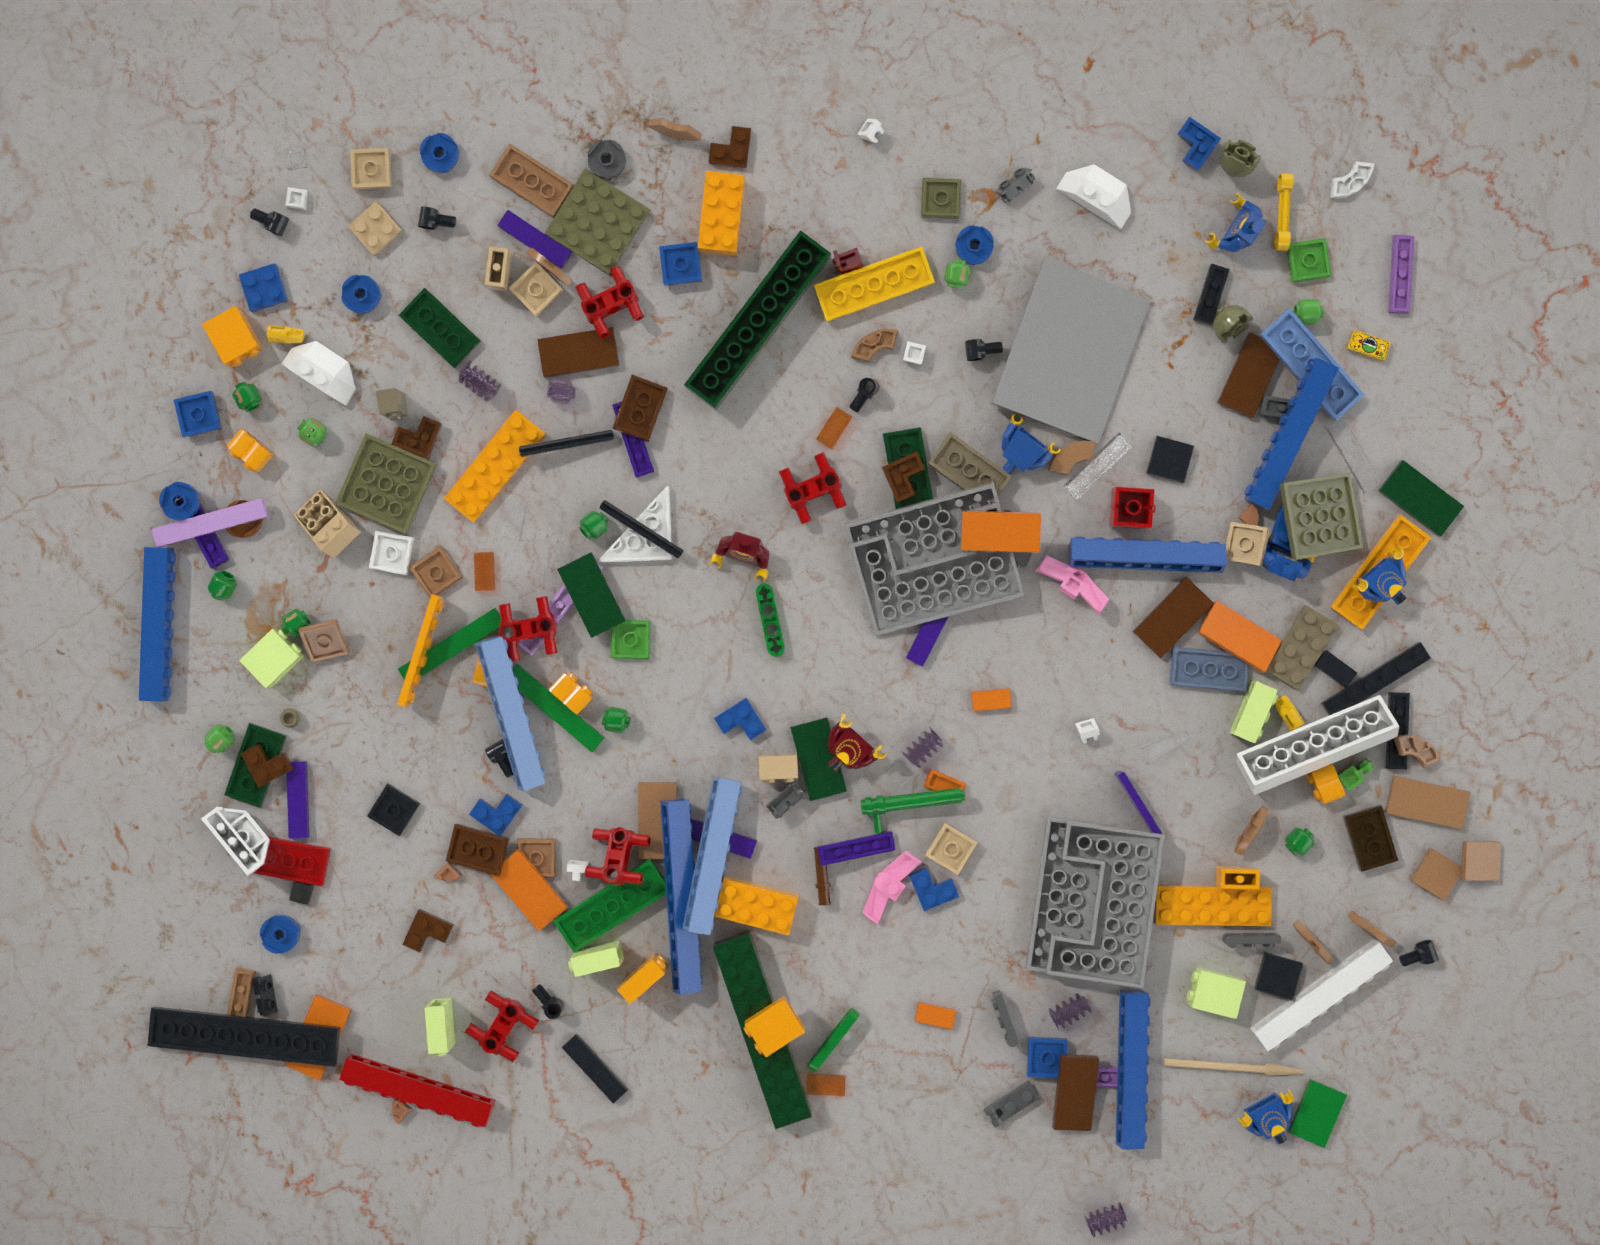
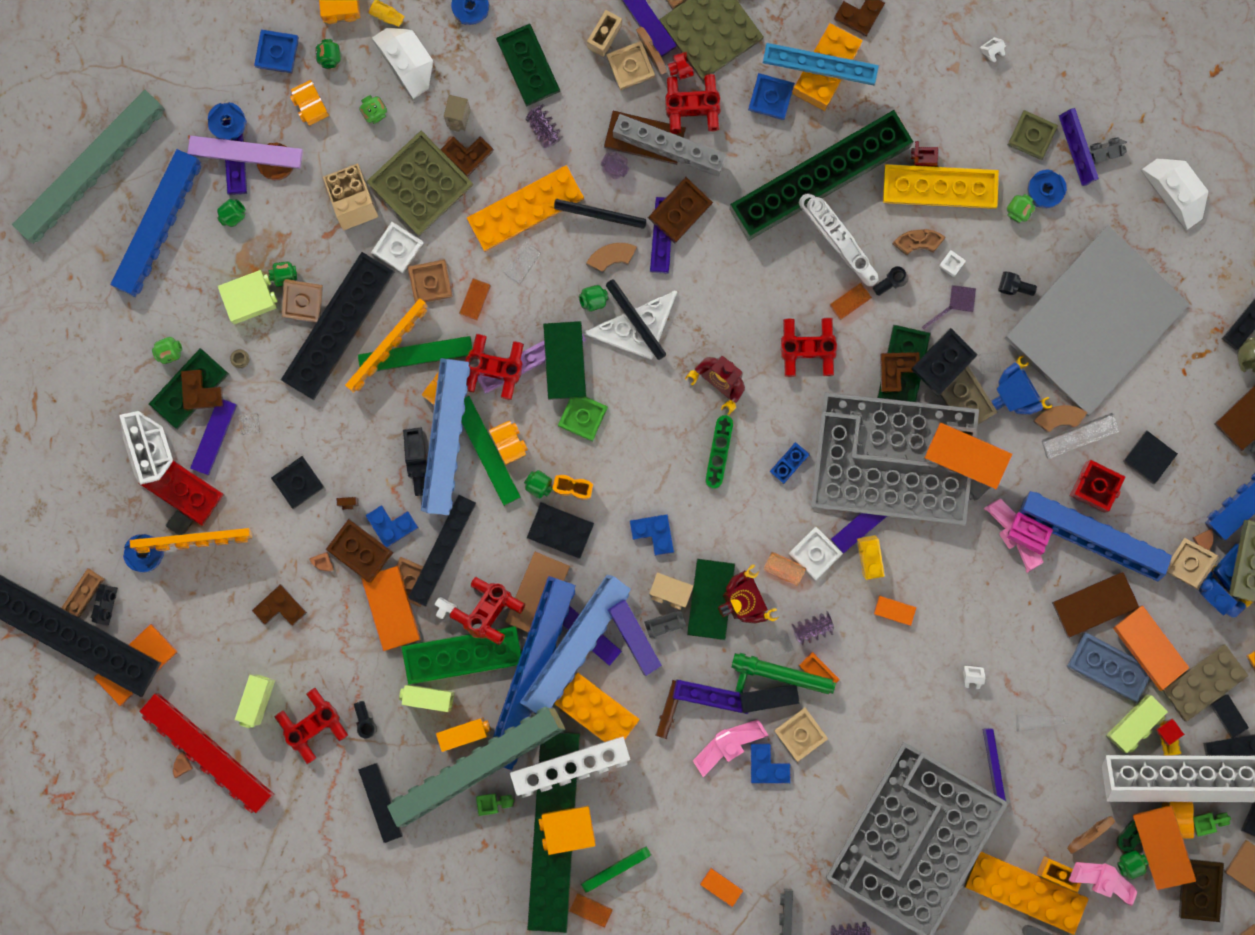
camera: 30 degrees right, 5 degrees down
(70, 597) = (89, 167): none -> sand green brick
(312, 910) = (184, 541): none -> light orange plate
(367, 649) = (337, 326): none -> black plate
(447, 810) = (347, 503): none -> reddish brown plate
(486, 732) = (414, 446): none -> black tile
(553, 817) = (442, 550): none -> black plate
(583, 271) = (680, 66): none -> red piece
(593, 476) = (611, 254): none -> medium nougat tile
(603, 351) = (669, 145): none -> light grey brick
(654, 709) = (567, 486): none -> light orange brick
(654, 753) = (560, 530): none -> black plate
(667, 1004) = (476, 767): none -> sand green brick
(694, 1029) = (488, 803): none -> bright green plate
(713, 215) = (820, 64): none -> dark azure plate
(719, 1005) = (524, 788): none -> white brick
(762, 824) = (634, 637): none -> dark purple tile
(801, 375) = (839, 238): none -> white piece
(839, 603) = (789, 462): none -> blue slope
(874, 703) = (784, 568): none -> clear orange tile
(897, 677) = (815, 553): none -> white tile
(908, 828) = (769, 698): none -> black tile
(936, 383) = (961, 299): none -> clear purple piece
(943, 450) = (944, 361): none -> black plate
(949, 661) = (870, 557): none -> yellow brick
(988, 192) = (1078, 147): none -> dark purple tile
(1086, 578) = (1029, 533): none -> dark pink plate
(1280, 867) = (1104, 880): none -> bright pink plate
(1284, 812) = (1126, 833): none -> dark green beam
(1286, 707) = (1170, 732): none -> red tile
(1322, 814) = (1164, 847): none -> orange tile

